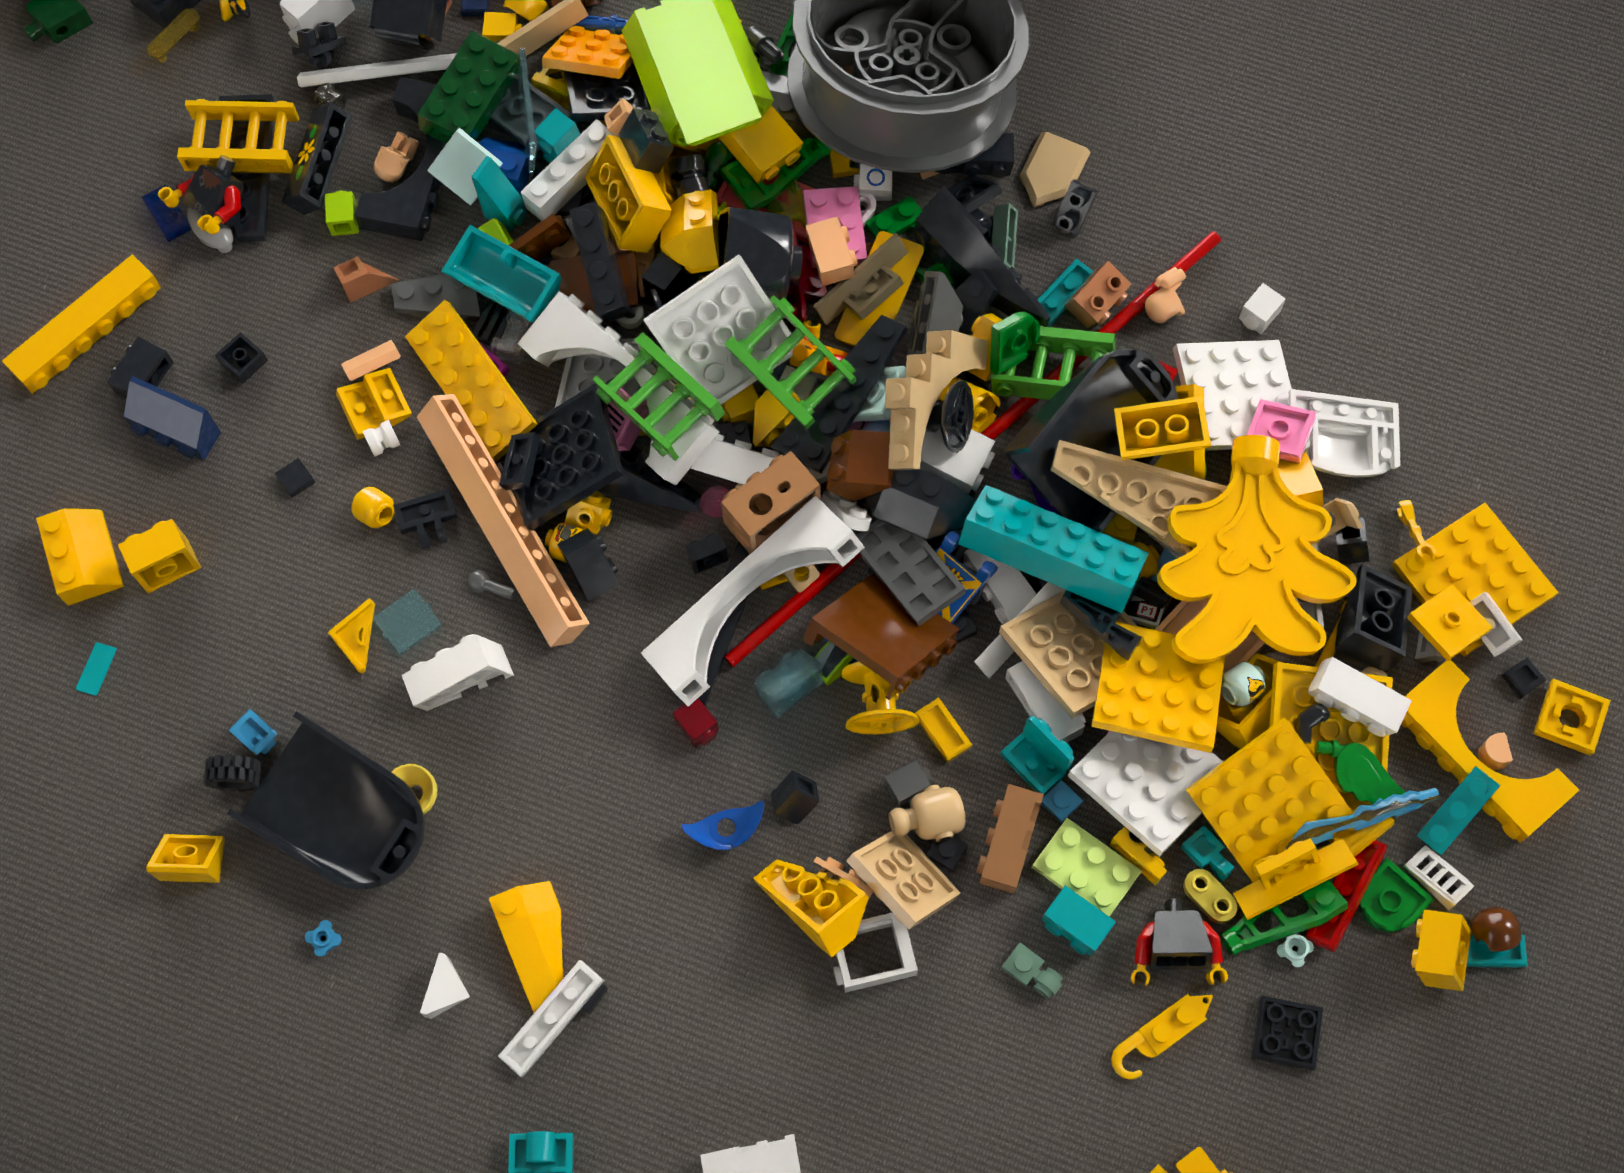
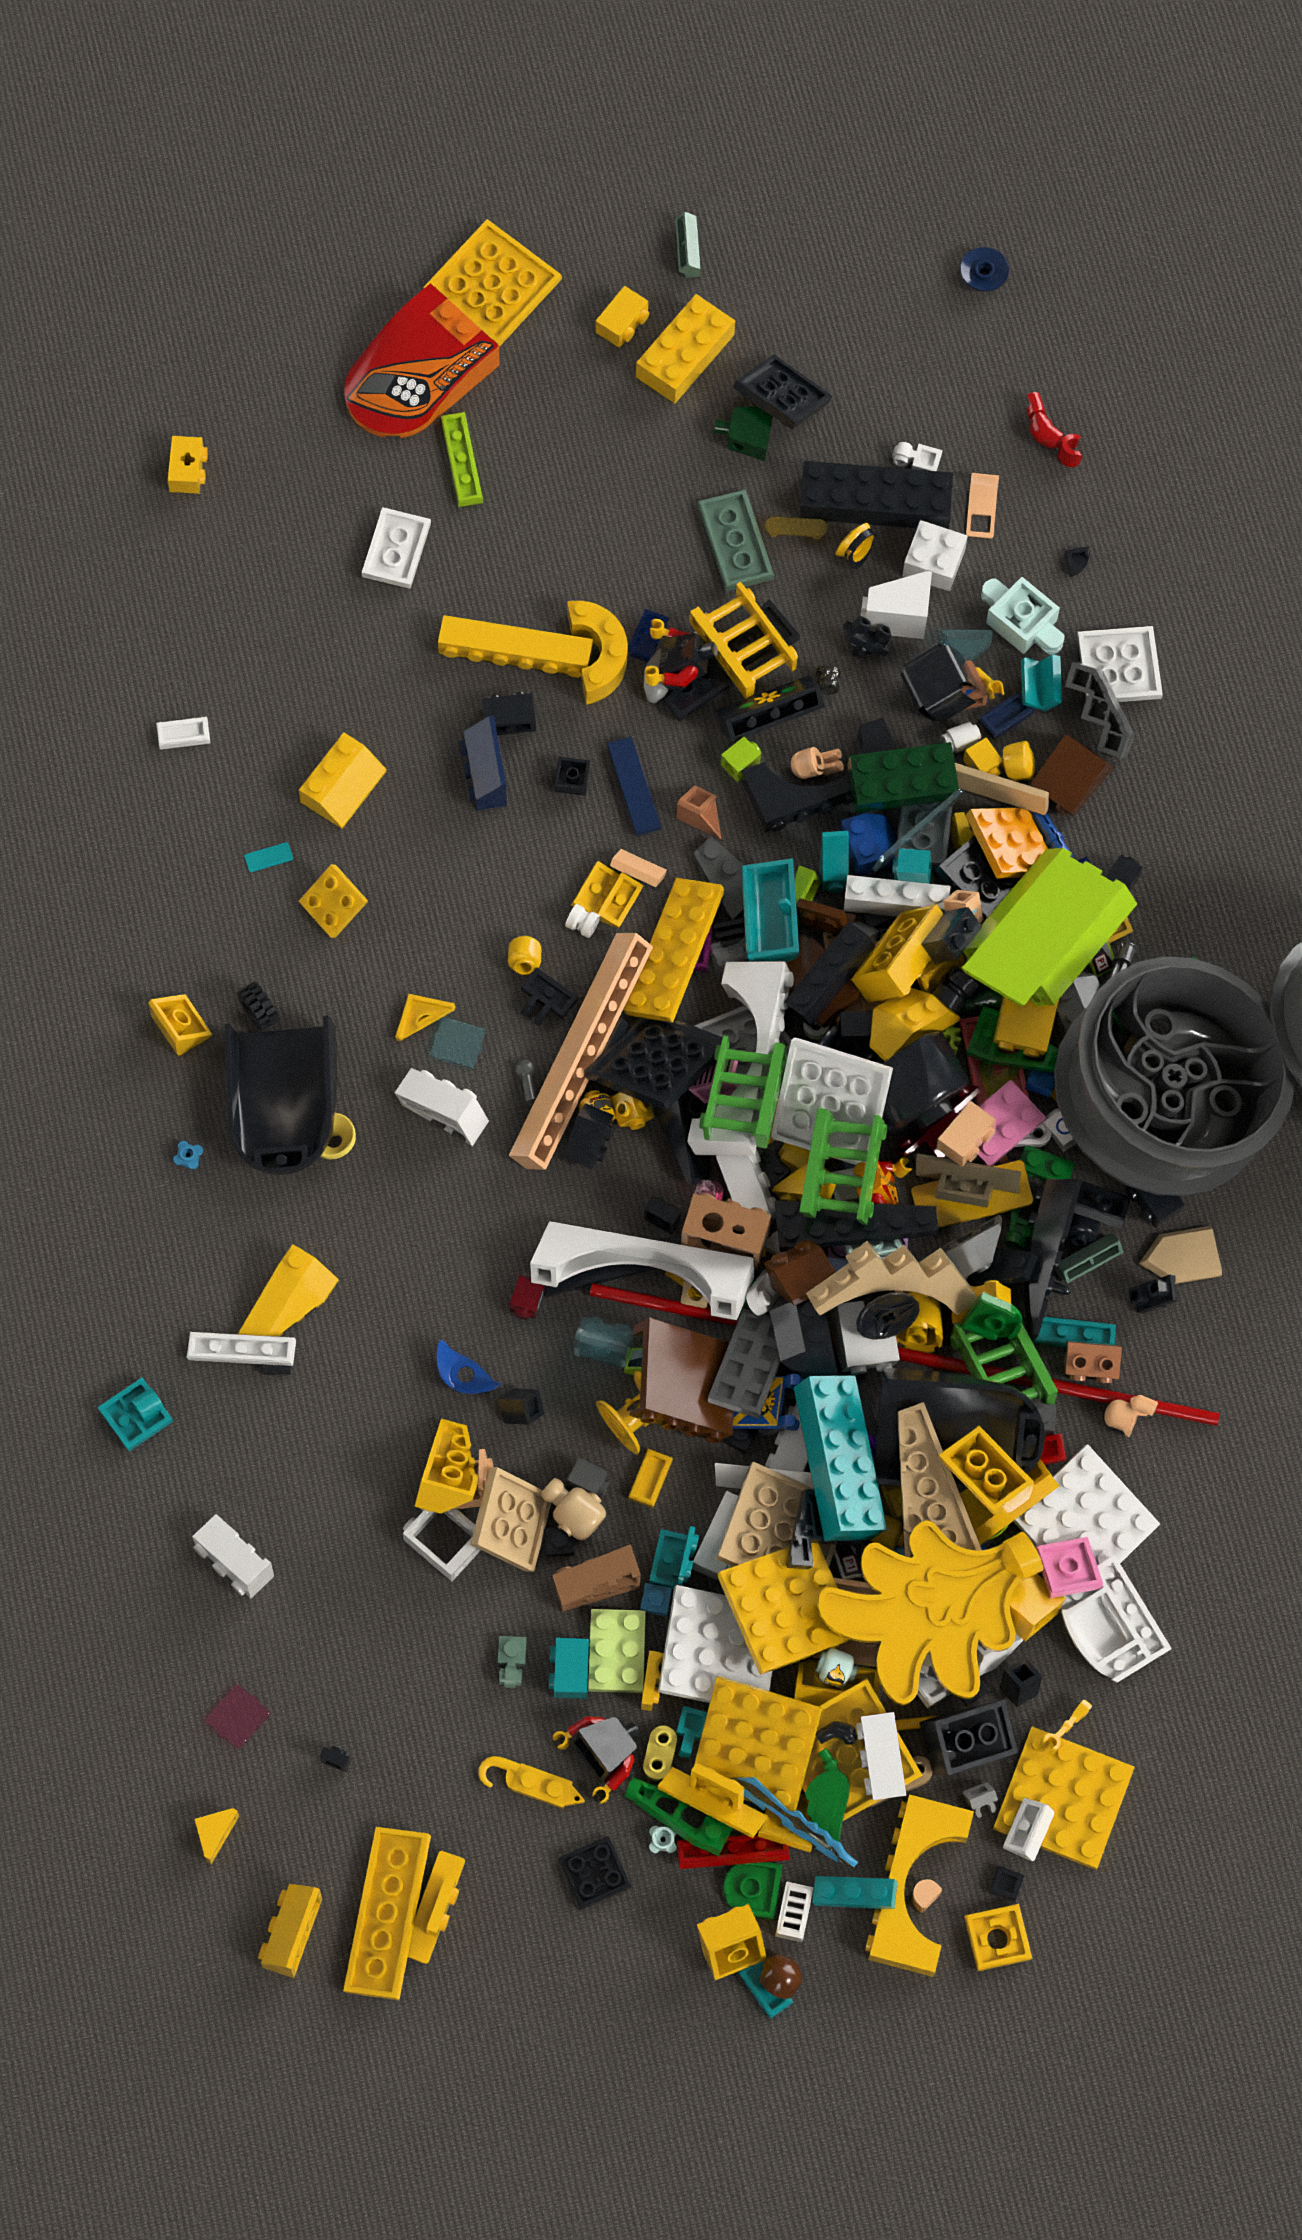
camera: 50 degrees right, 0 degrees up
(142, 89) = (735, 540): none -> sand green tile
(149, 245) = (599, 624): none -> yellow brick
(159, 555) = (378, 836): yellow brick -> none
(186, 637) = (333, 901): none -> yellow plate
(253, 733) = (298, 999): dark azure bracket -> none
(292, 315) = (634, 786): none -> dark blue tile
(295, 477) = (508, 883): black tile -> none
(375, 70) = (879, 694): white tile -> none
(444, 989) = (210, 1261): white slope -> none
(458, 163) = (840, 813): light aqua tile -> none
(463, 29) = (962, 736): none -> white brick
(520, 461) = (631, 1031): black plate -> none
(819, 174) = (1040, 1082): none -> blue tile
(1261, 309) = (1175, 1493): white brick -> none
(1344, 513) = (1030, 1657): tan bracket -> none
(1449, 622) = (1001, 1793): yellow plate -> none

